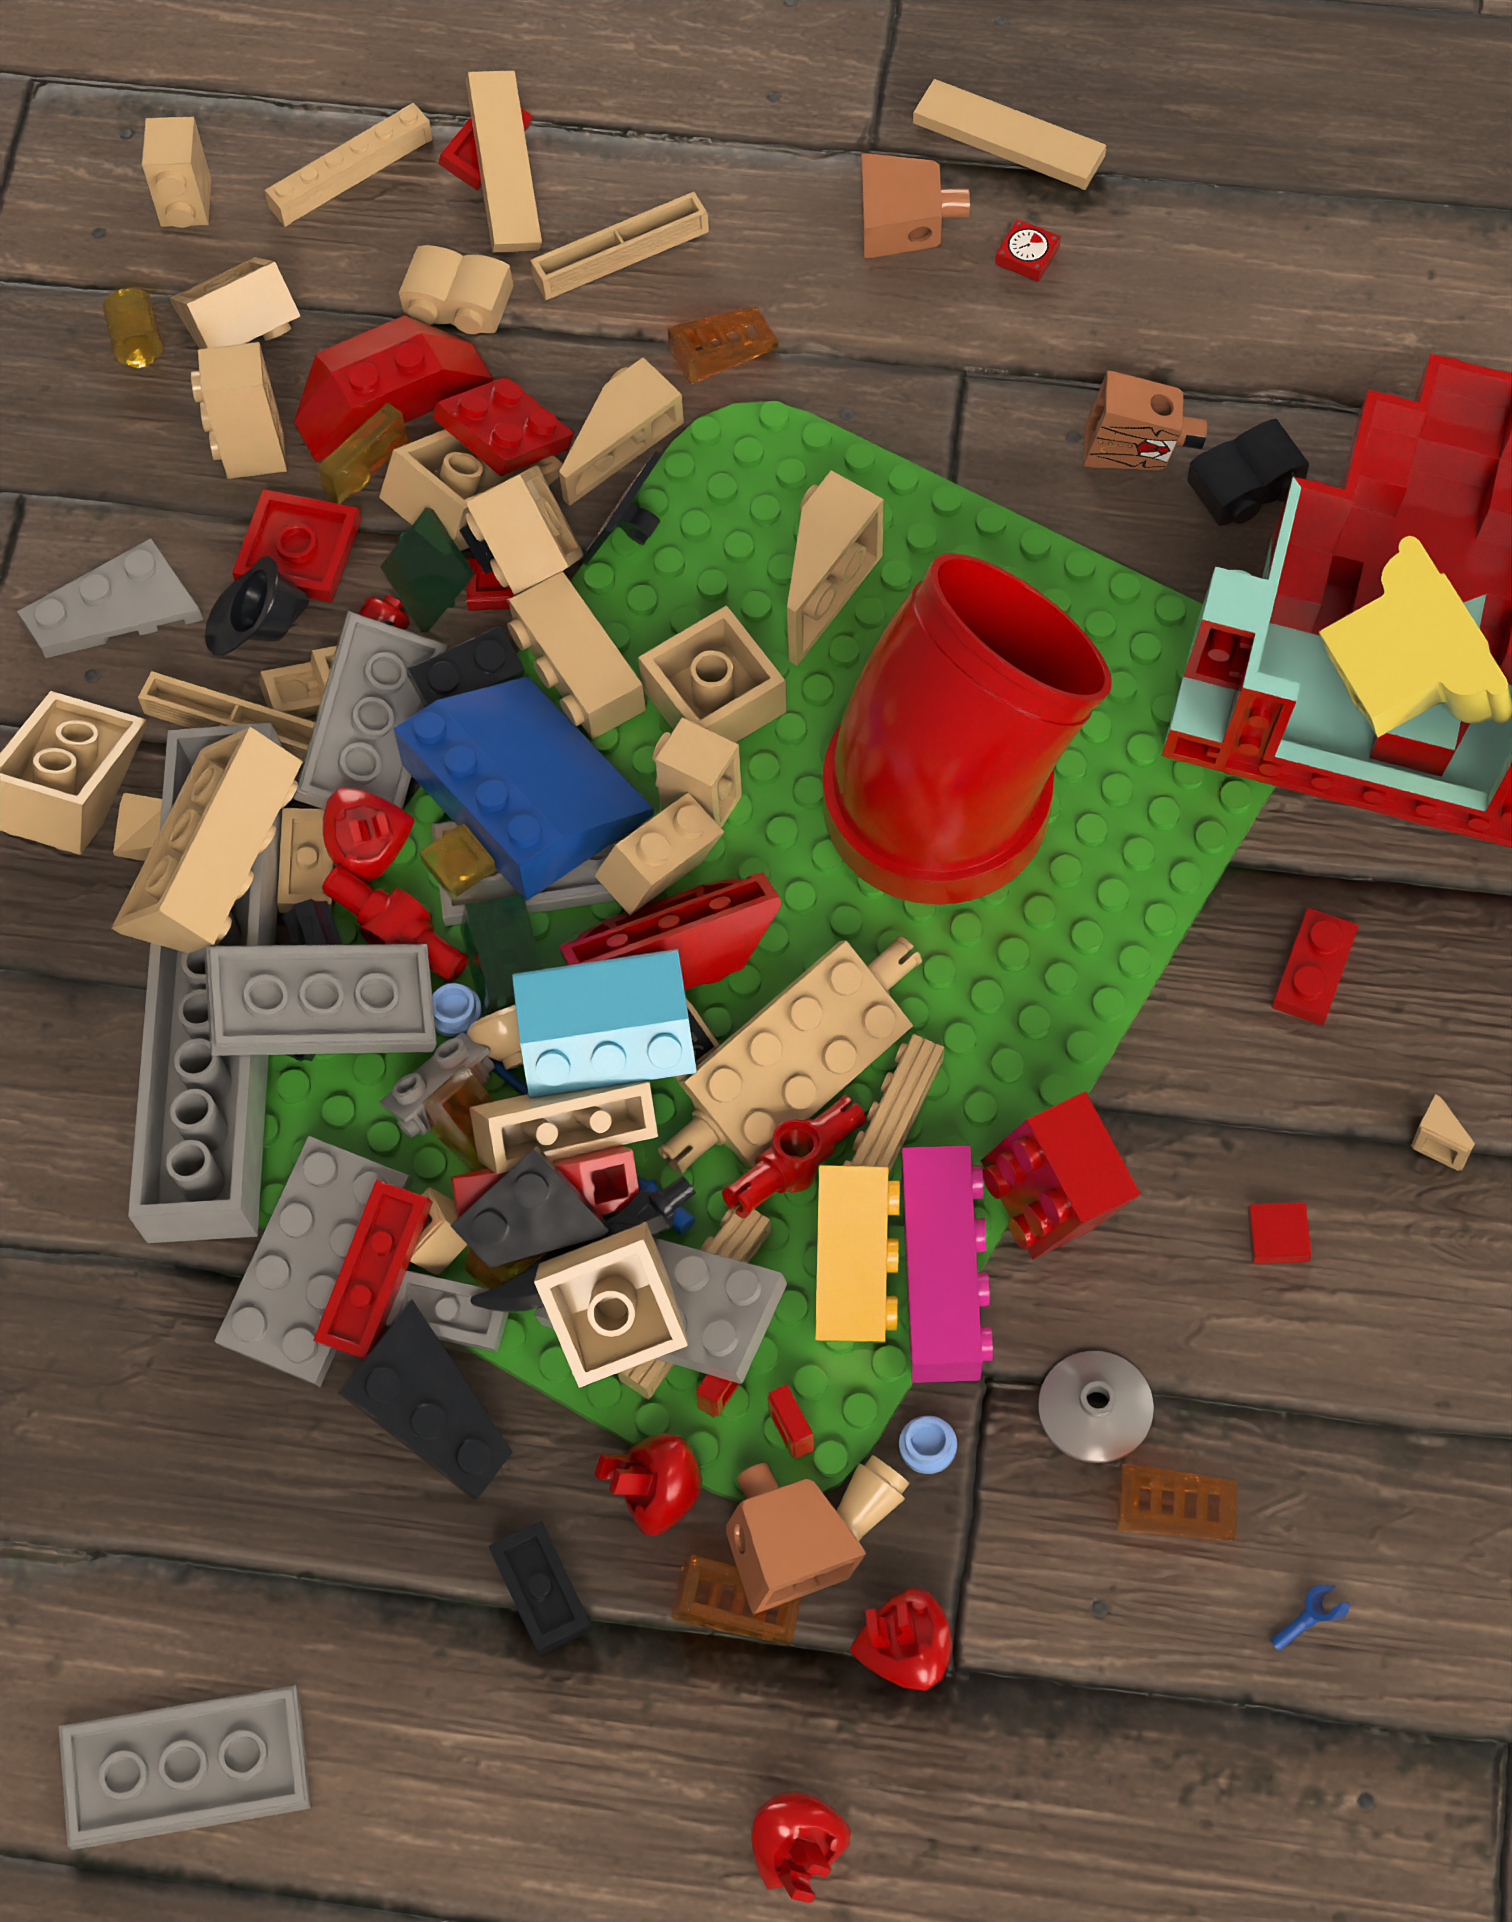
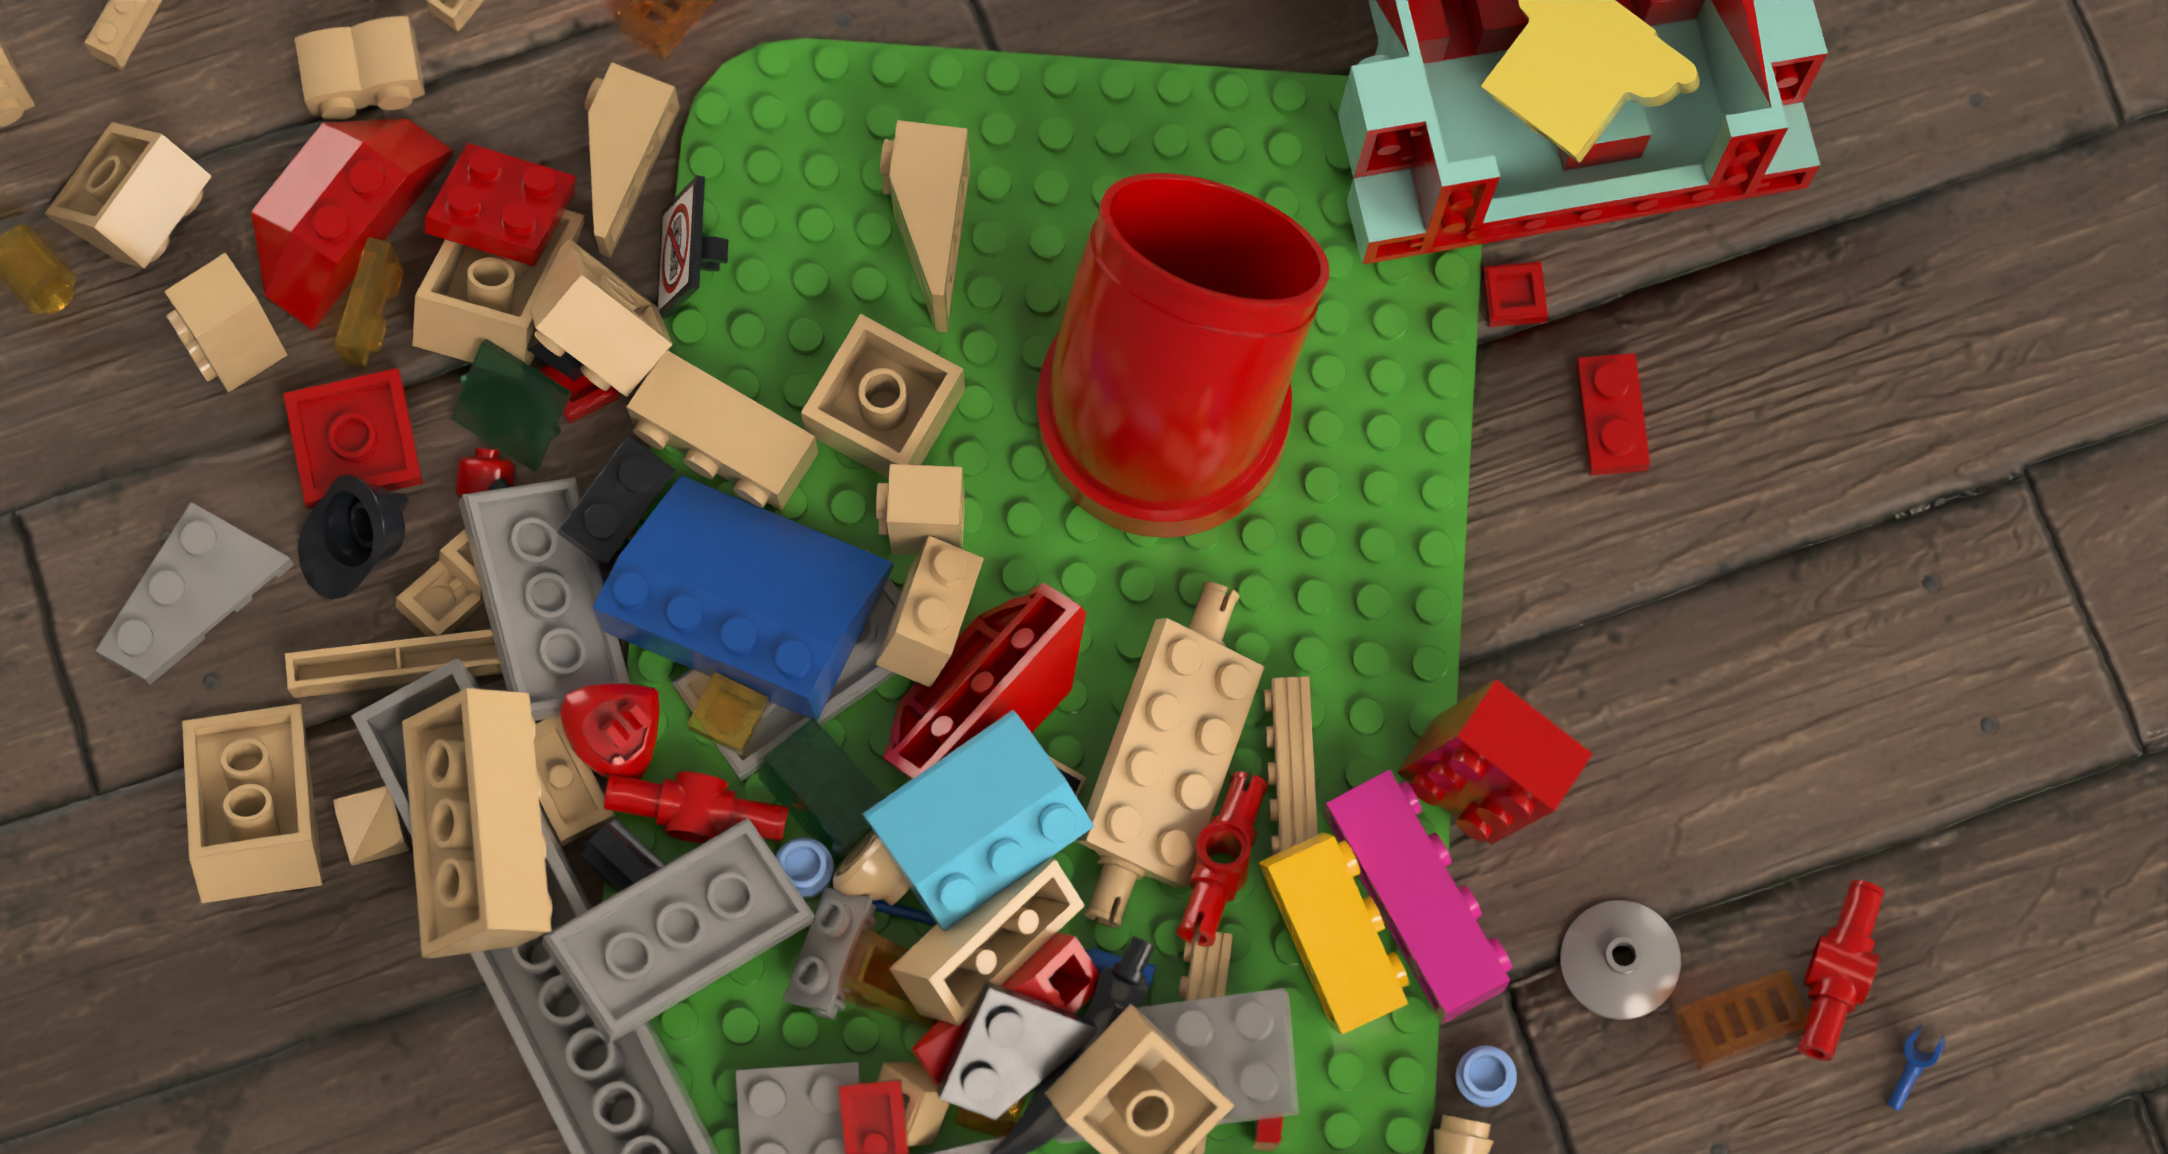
camera: 30 degrees left, 10 degrees up
(790, 1422) = (1354, 1123): red tile -> none
(1279, 1233) = (1708, 705): red tile -> none
(1280, 838) = (1515, 294): none -> red tile
(1283, 1503) = (1841, 970): none -> red pin
(1443, 1136) = (1815, 535): tan slope -> none

